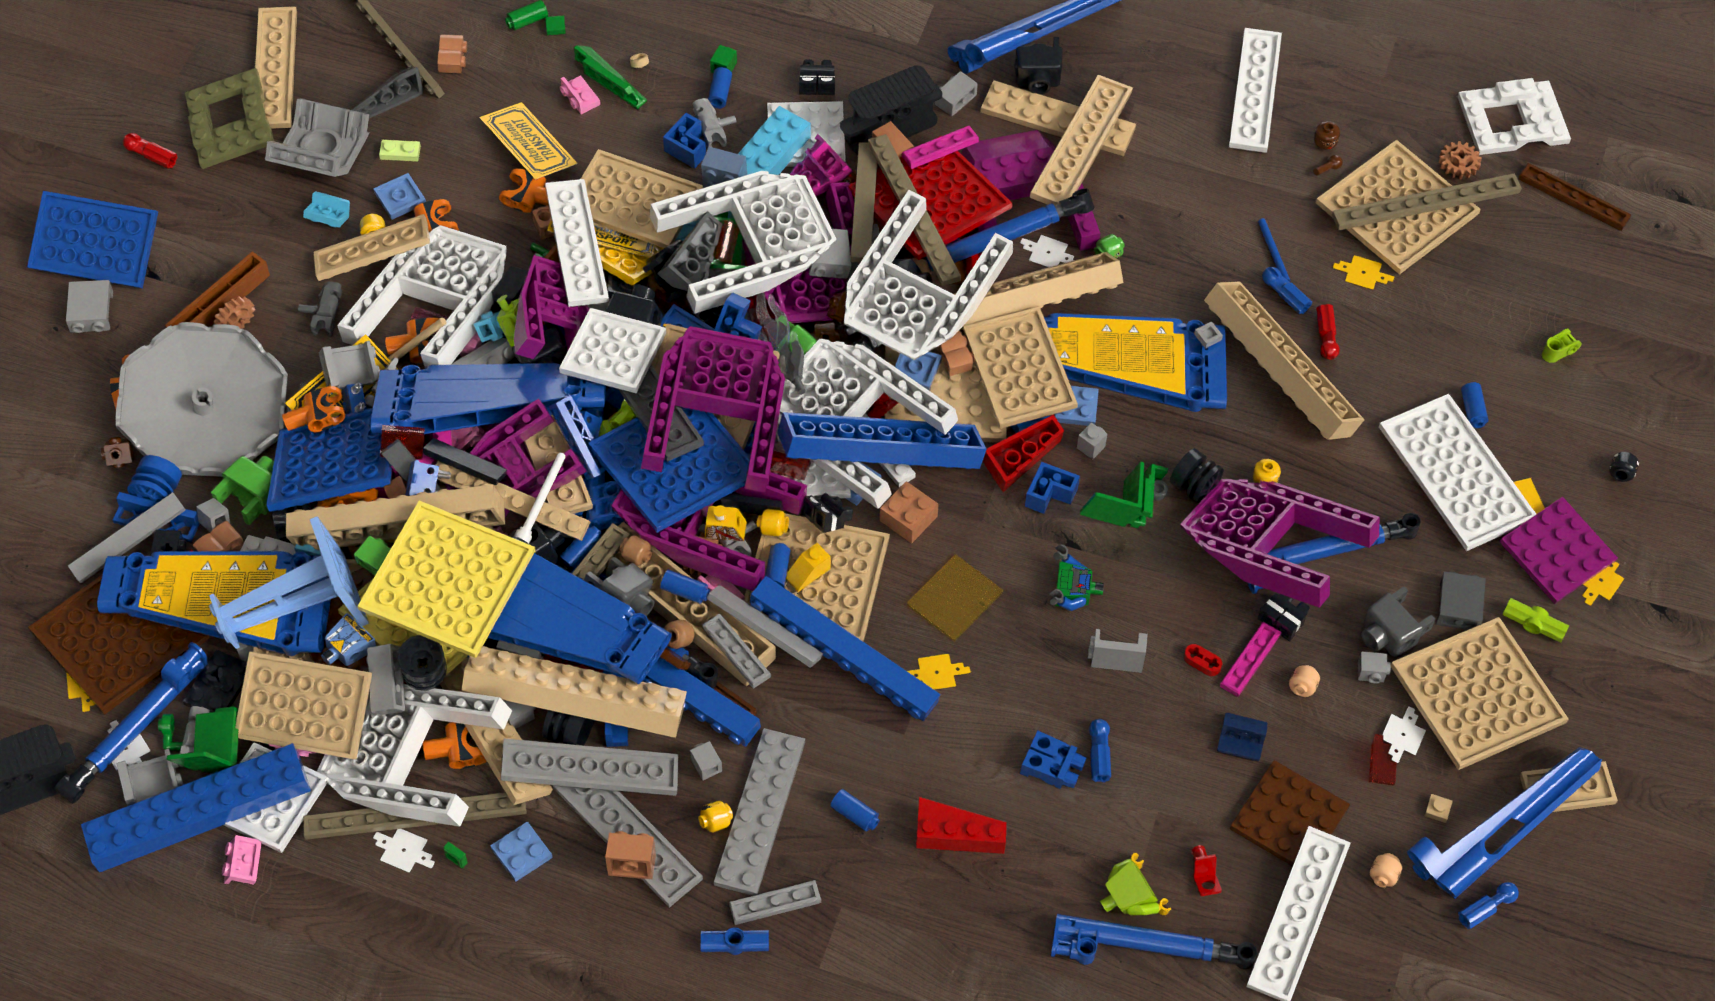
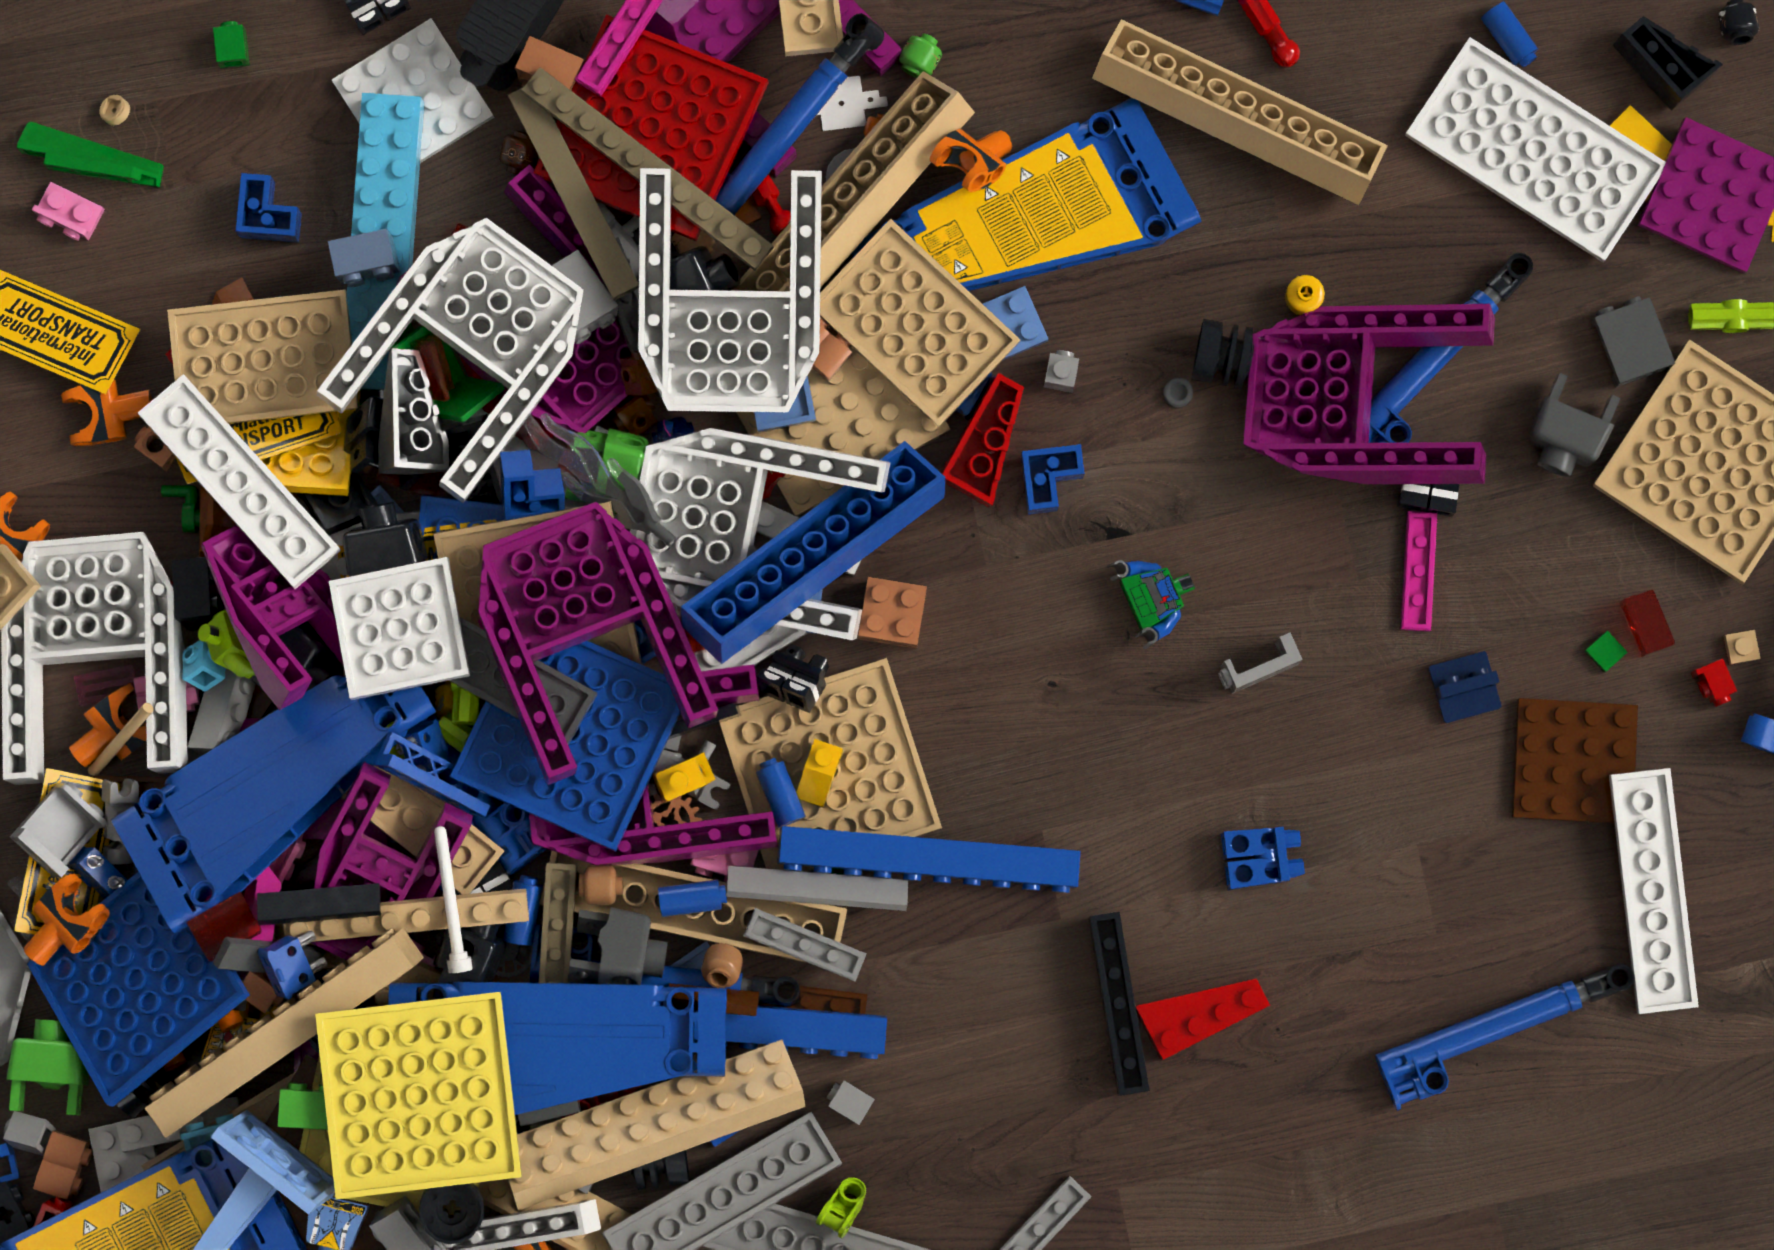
camera: 30 degrees left, 25 degrees up
(660, 814) = (841, 1211): none -> lime piece
(711, 125) = (277, 159): light grey piece -> none
(715, 816) = (905, 1166): yellow head -> none
(720, 87) = (252, 92): blue brick -> none
(759, 812) = (951, 1124): light grey plate -> none
(773, 523) = (738, 735): yellow head -> none
(822, 166) = (472, 160): dark pink wedge -> none
(855, 810) = (1065, 1060): blue brick -> none
(908, 793) = (1118, 1003): none -> black brick
(946, 670) = (1037, 809): yellow piece -> none
(955, 597) = (1014, 695): clear yellow piece -> none
(1100, 751) = (1308, 807): blue piece -> none
(1109, 305) = (977, 159): none -> orange connector
(1131, 890) = (1444, 974): lime torso -> none
(1136, 501) = (1163, 427): green piece -> none
(1202, 660) = (1363, 600): red beam -> none
(1205, 871) = (1514, 895): red bracket -> none
(1208, 334) = (1127, 132): light grey plate -> none
(1304, 679) = (1501, 568): light nougat head -> none
(1346, 764) = (1606, 651): none -> green tile
(1373, 667) = (1573, 500): light grey brick -> none
(1386, 870) = (1723, 770): light nougat head -> none
(1409, 815) = (1715, 682): none -> red brick
(1412, 737) = (1653, 583): white piece -> none
(1565, 464) = (1665, 62): none -> black wedge

